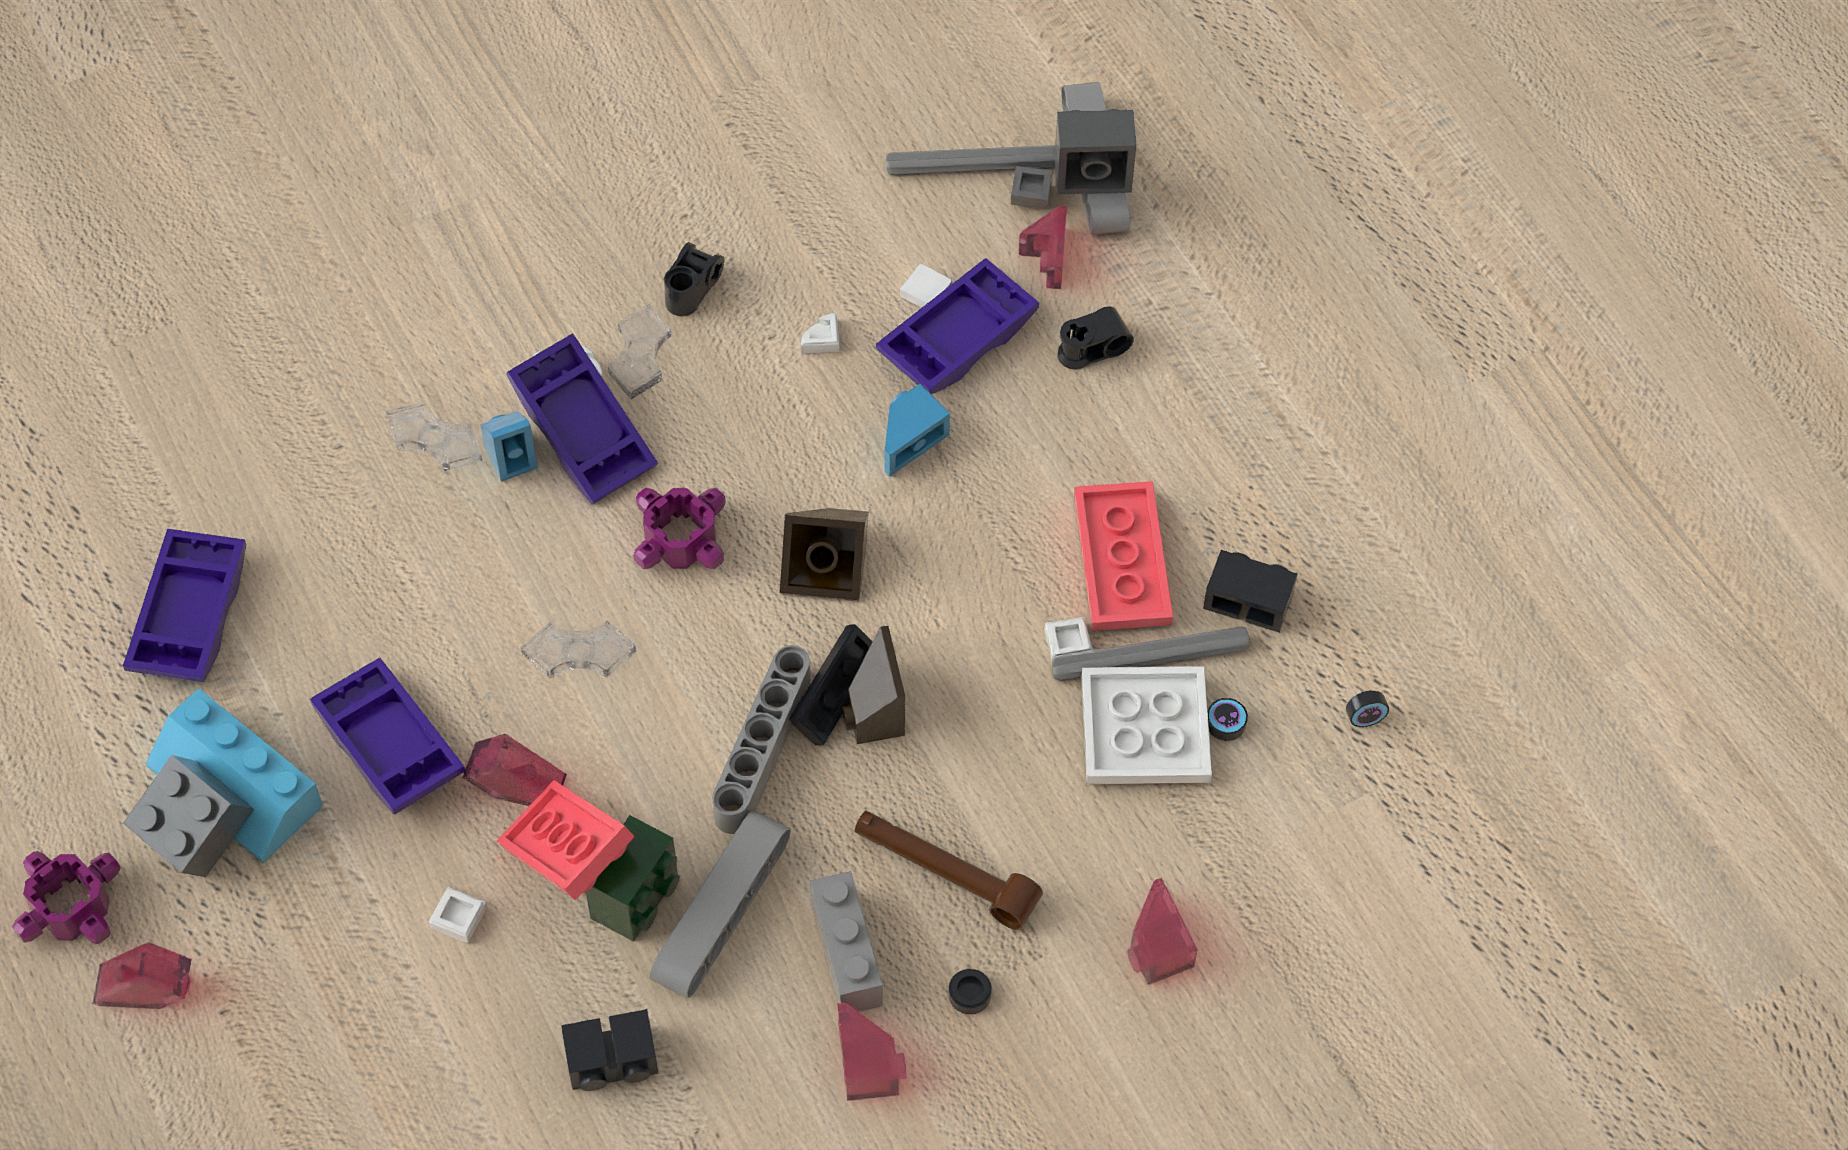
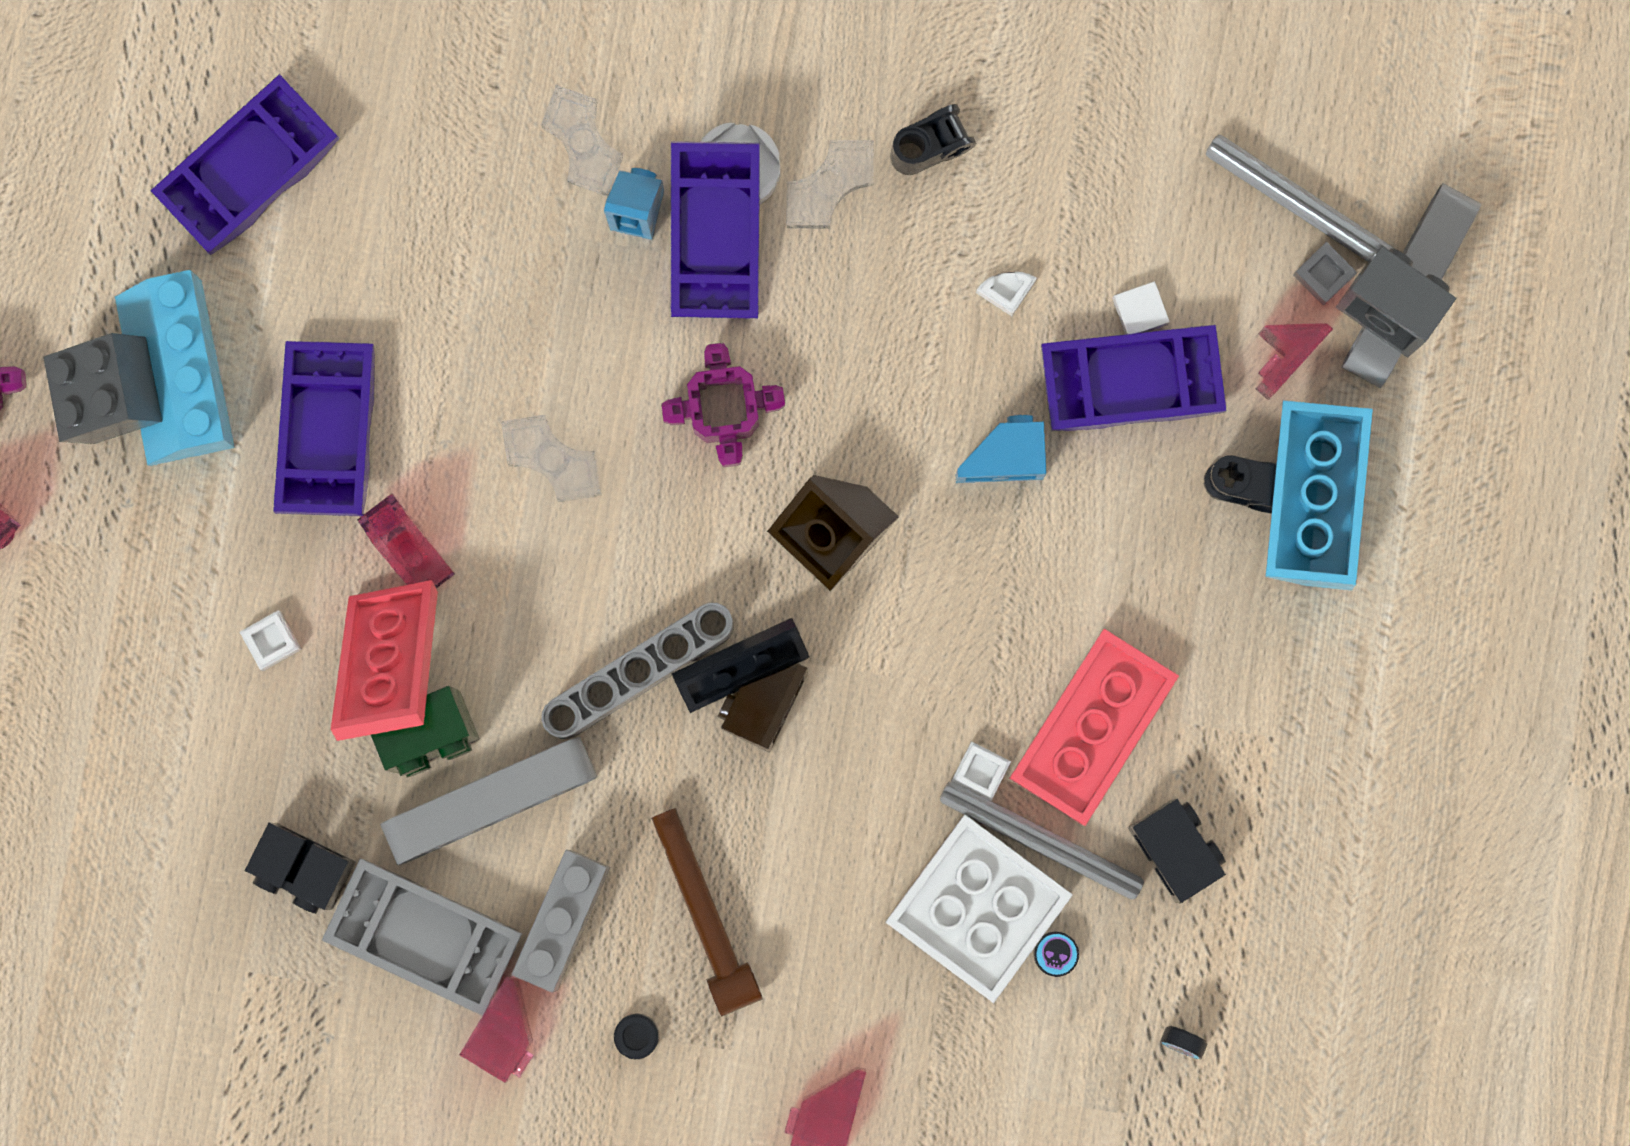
camera: 40 degrees right, 25 degrees up
(747, 1033) = (422, 936): none -> light grey slope
(1150, 306) = (1319, 495): none -> medium azure slope

